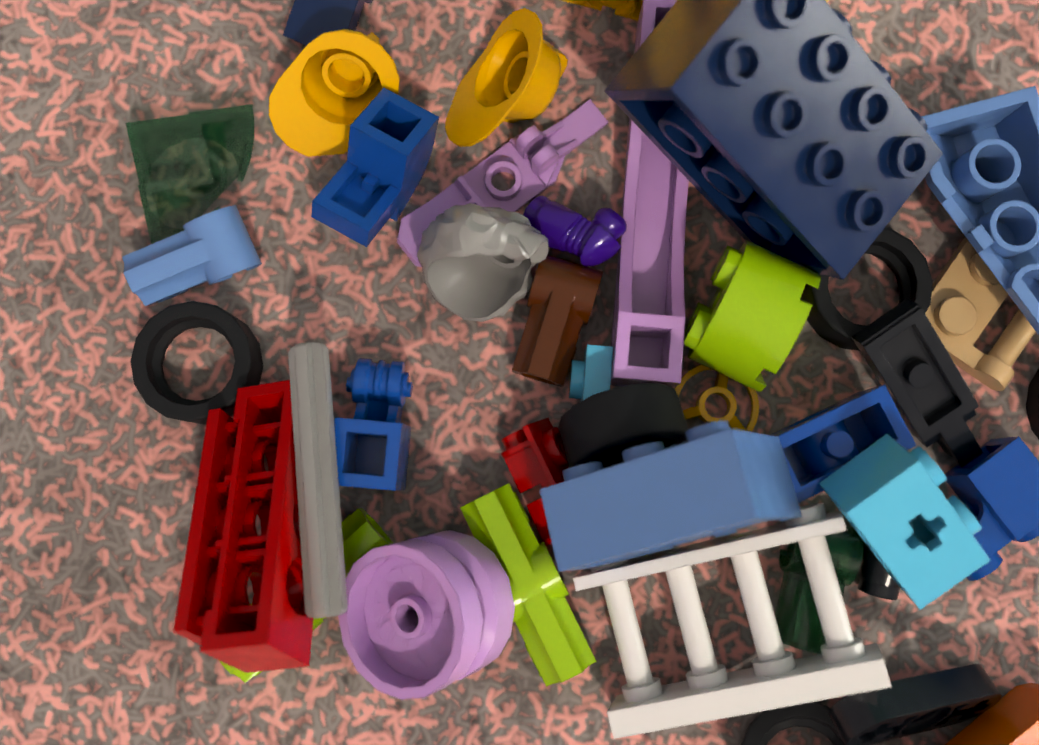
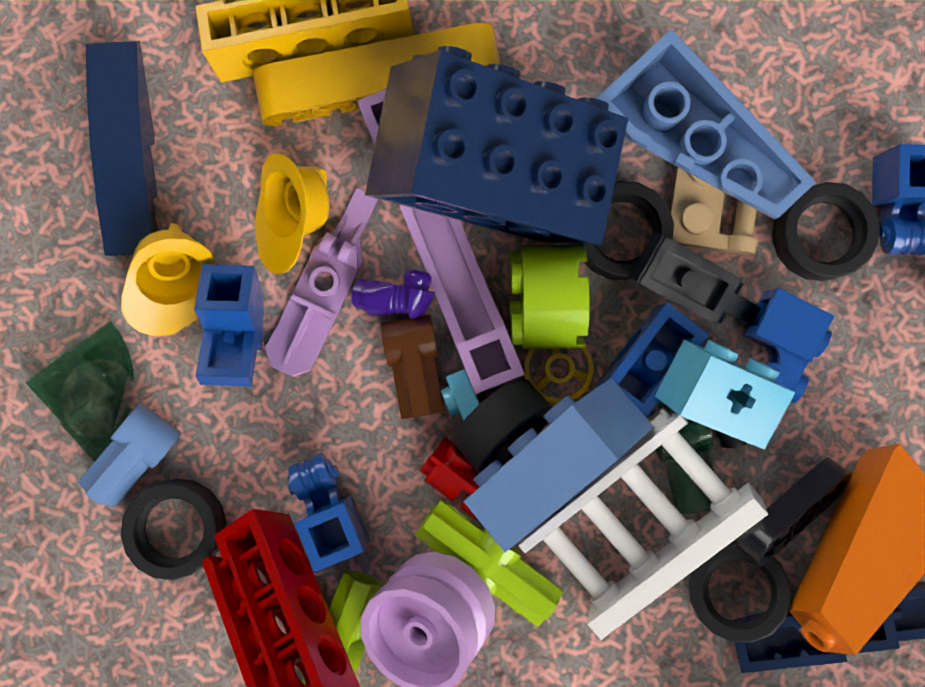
camera: 30 degrees left, 5 degrees up
(317, 481) = (305, 574): light grey axle -> none
(480, 259) = (338, 354): light grey hair -> none

